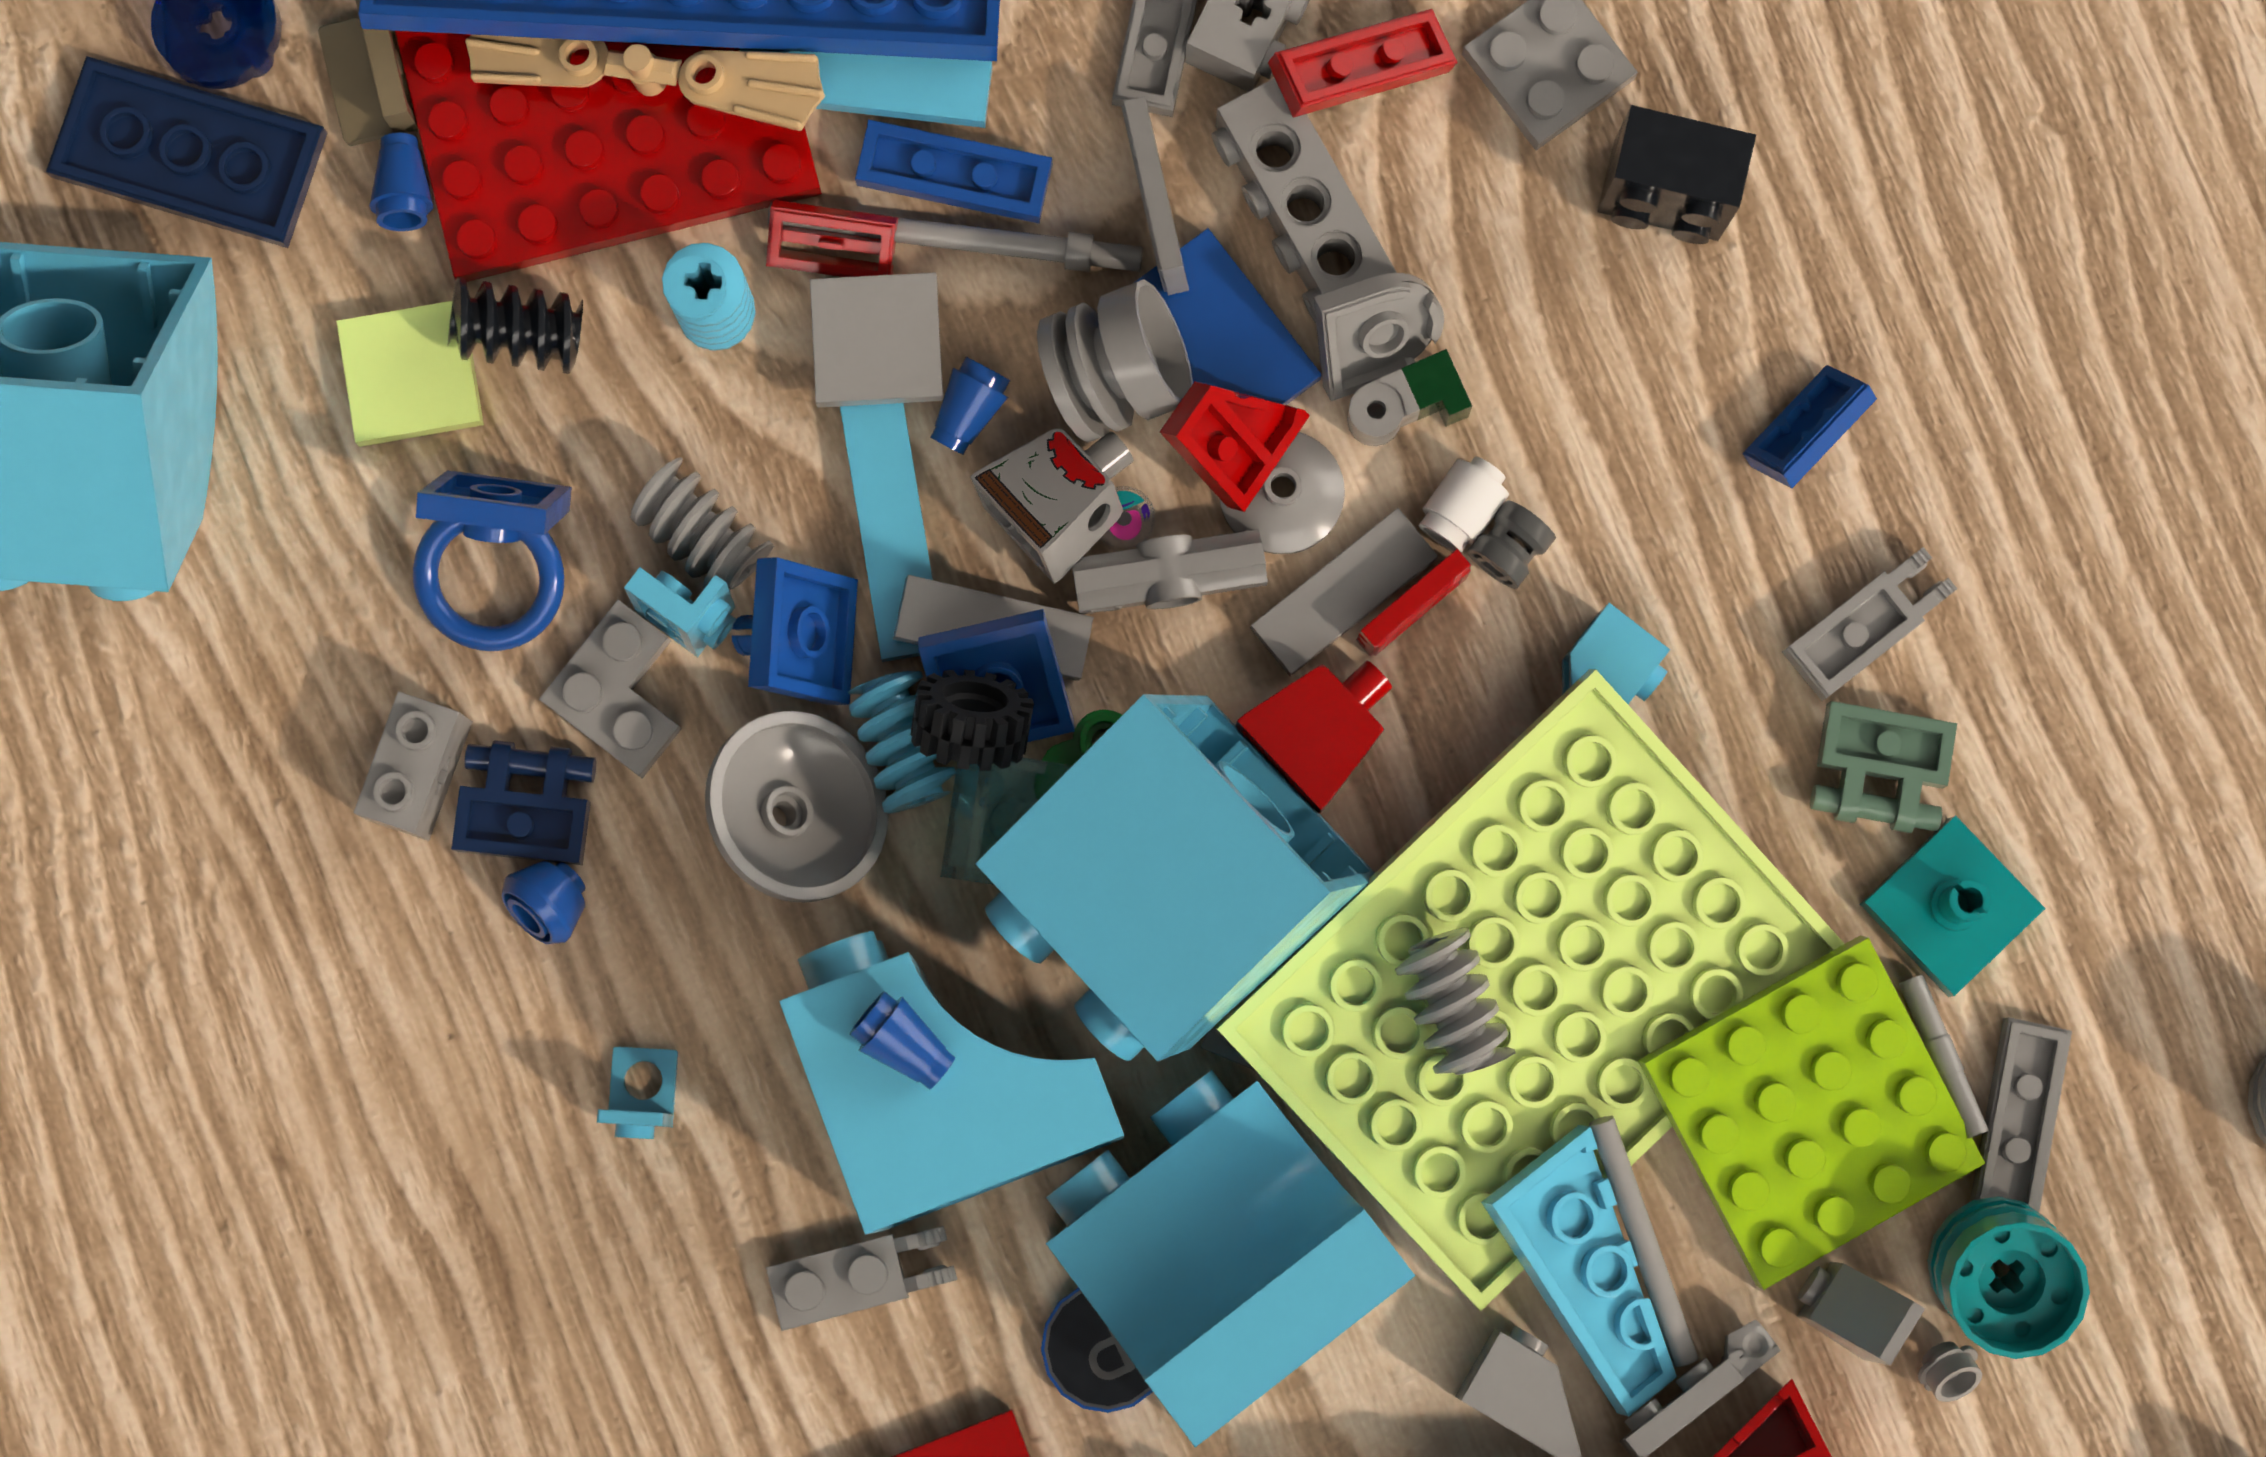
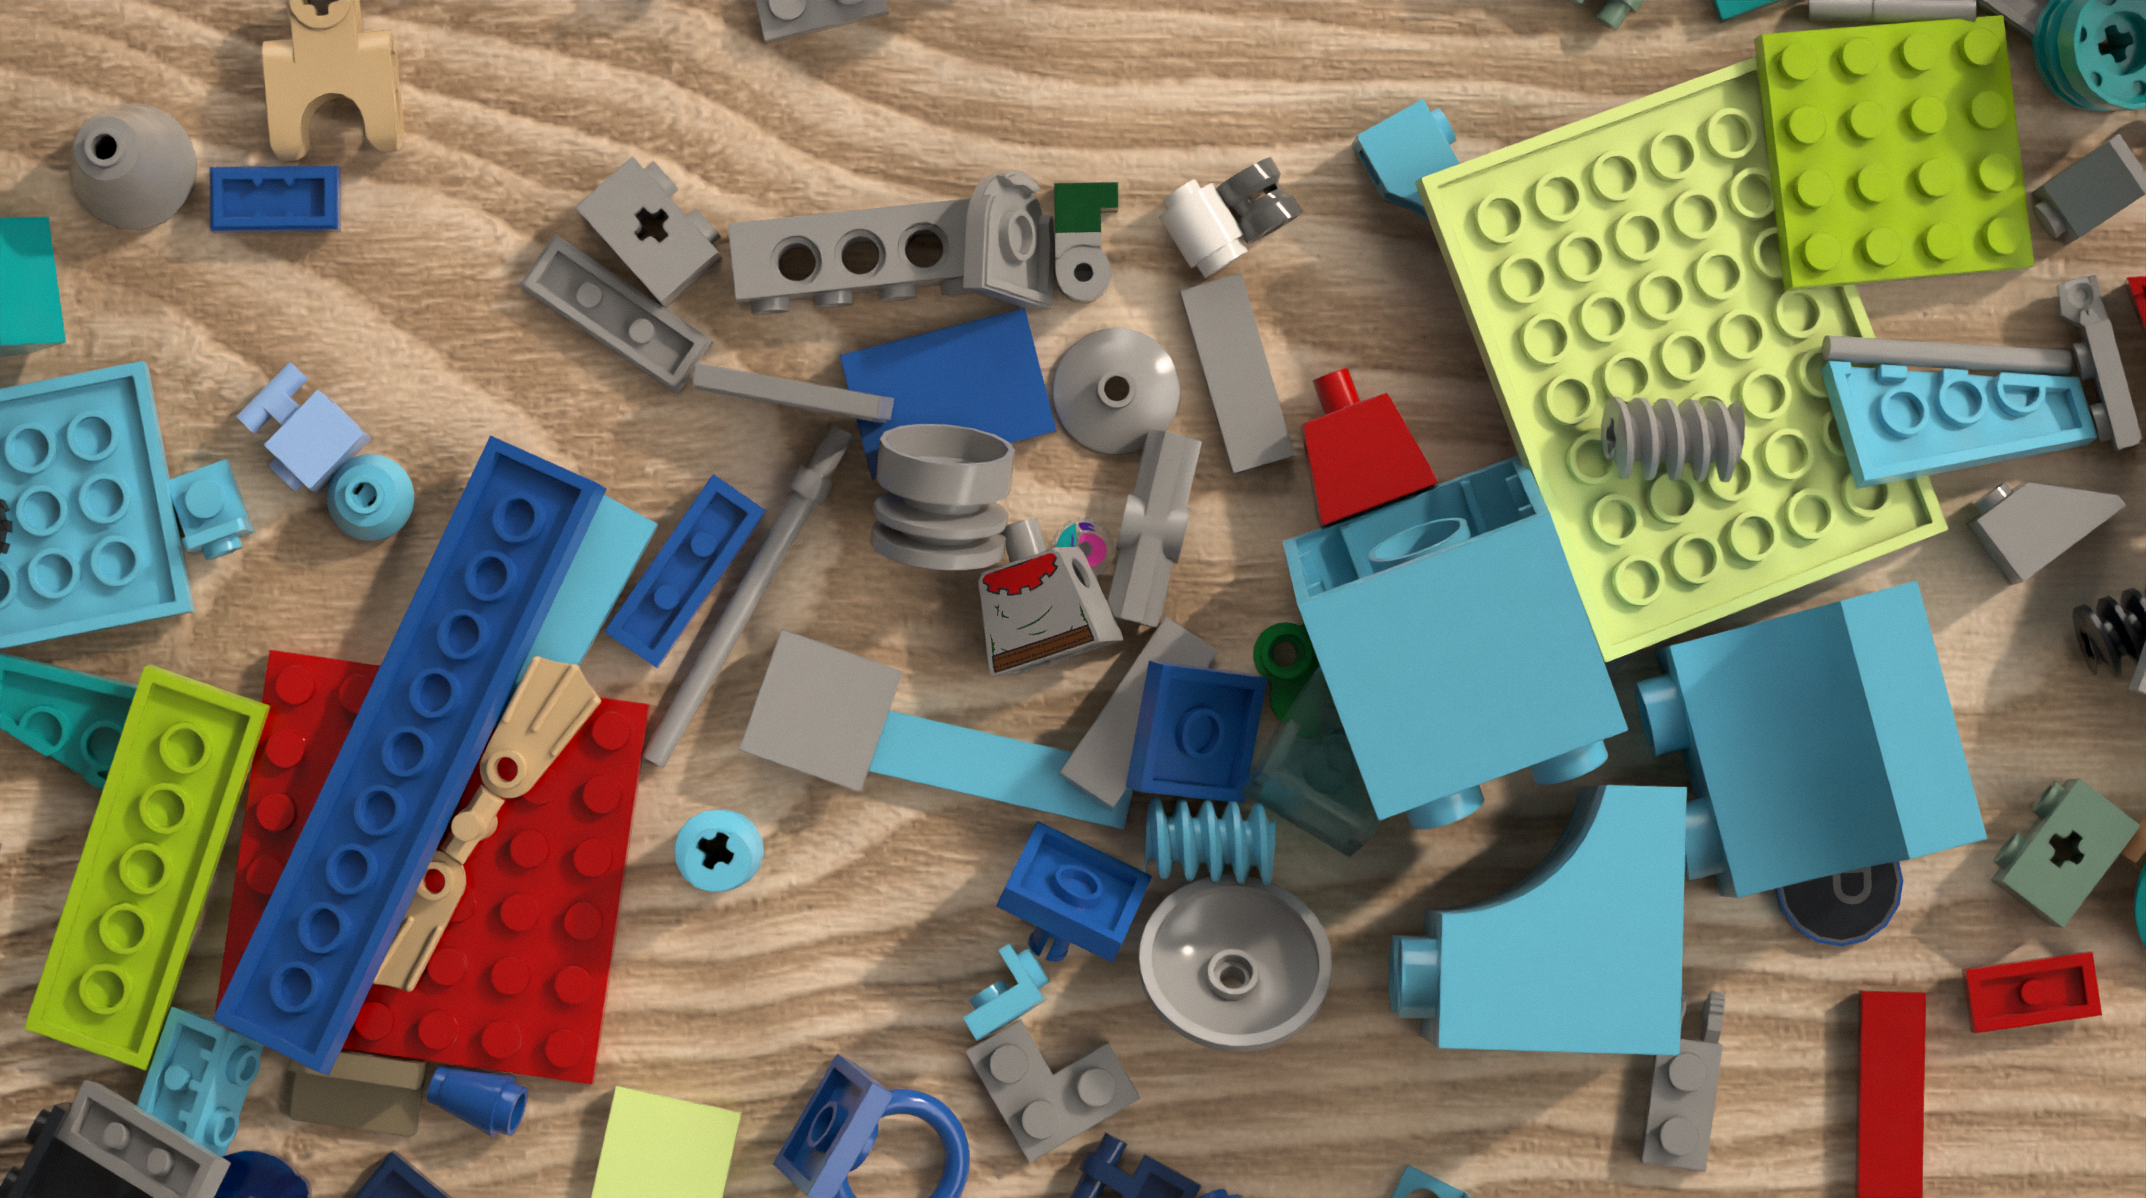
camera: 65 degrees left, 5 degrees up
(515, 325) = (667, 1044): black piece -> none
(695, 529) = (933, 949): light grey piece -> none
(836, 219) = (697, 709): red tile -> none
(902, 1040) = (1523, 952): blue cone -> none
(968, 404) = (915, 647): blue cone -> none
(971, 720) = (1229, 769): black tyre -> none
(1232, 439) = (1058, 417): red wing -> none
(1362, 62) = (745, 143): red tile -> none
(1414, 603) = (1277, 313): red tile -> none

